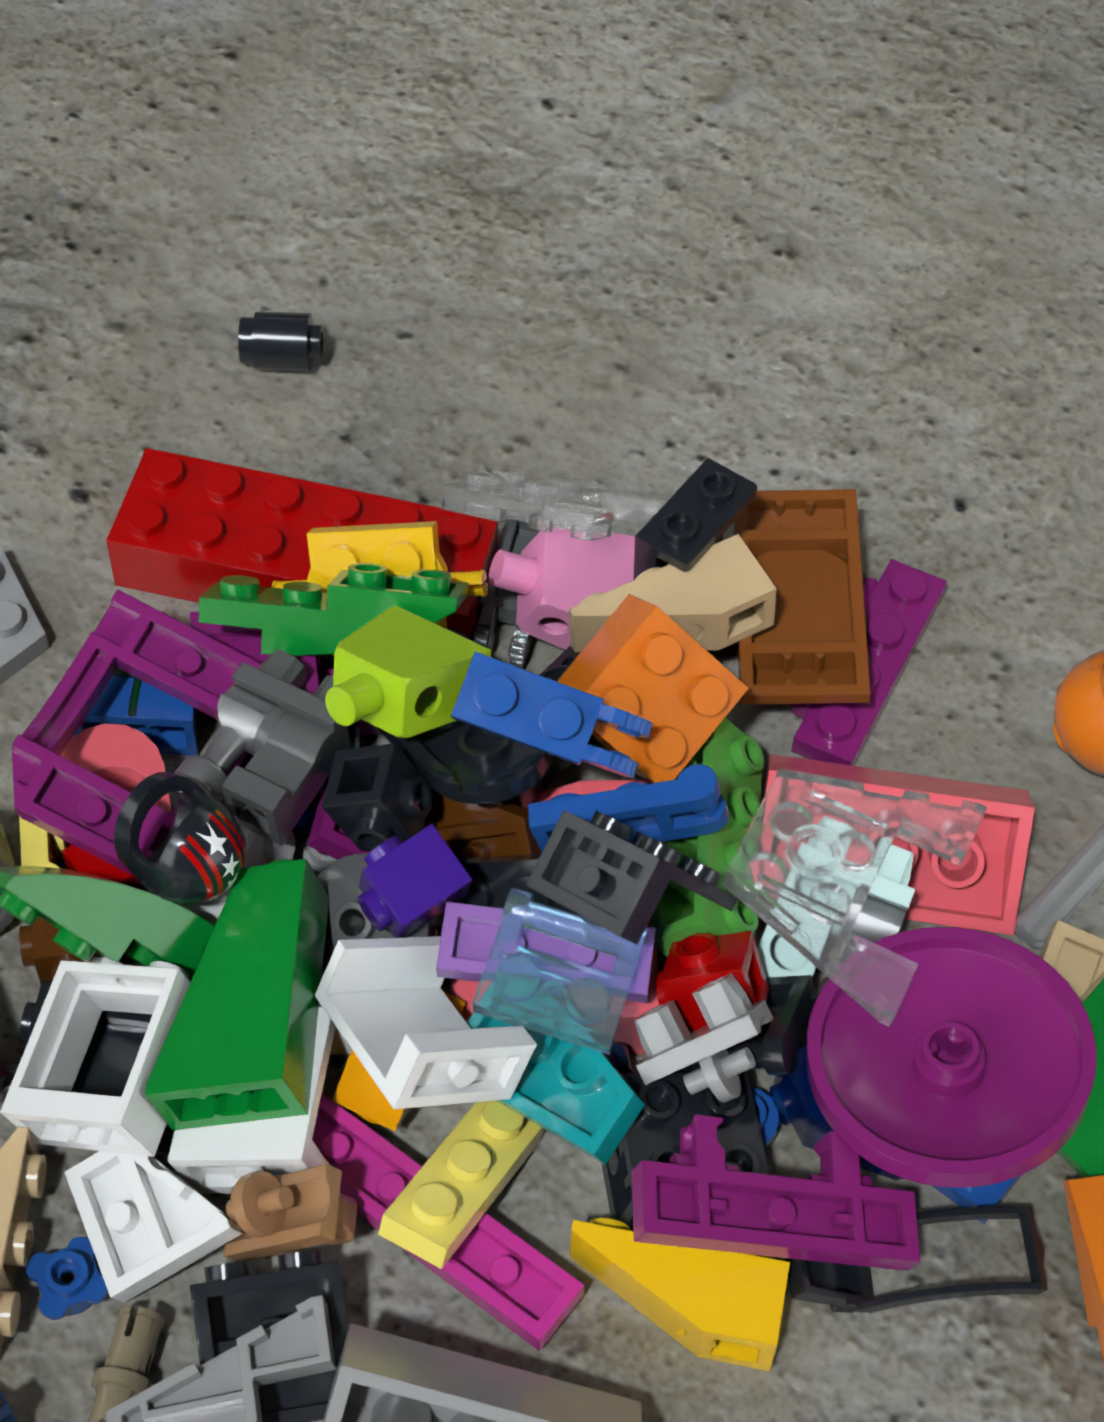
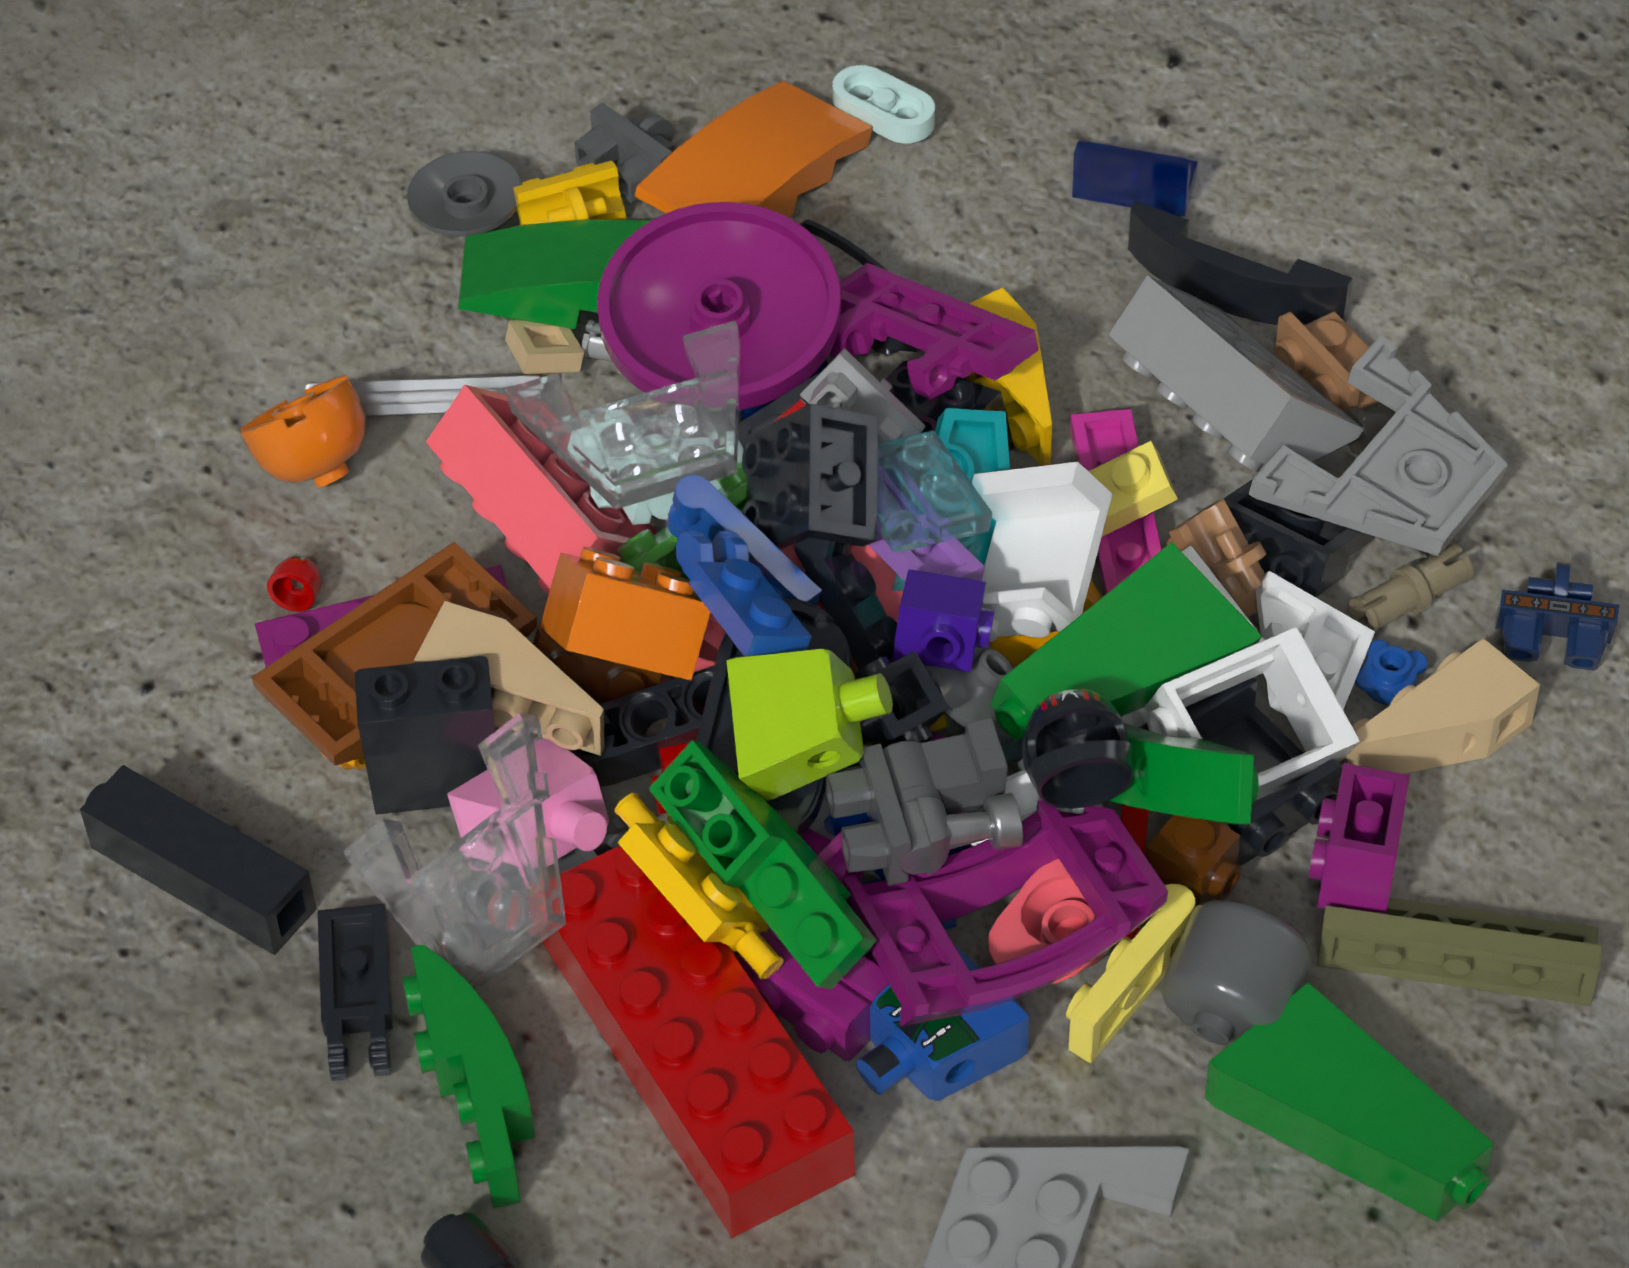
camera: 130 degrees left, 5 degrees down
(423, 443) = (474, 1064): none -> green slope
(554, 427) = (355, 984): none -> black hinge
(752, 412) = (198, 859): none -> black brick
(967, 633) = (284, 581): none -> red hinge

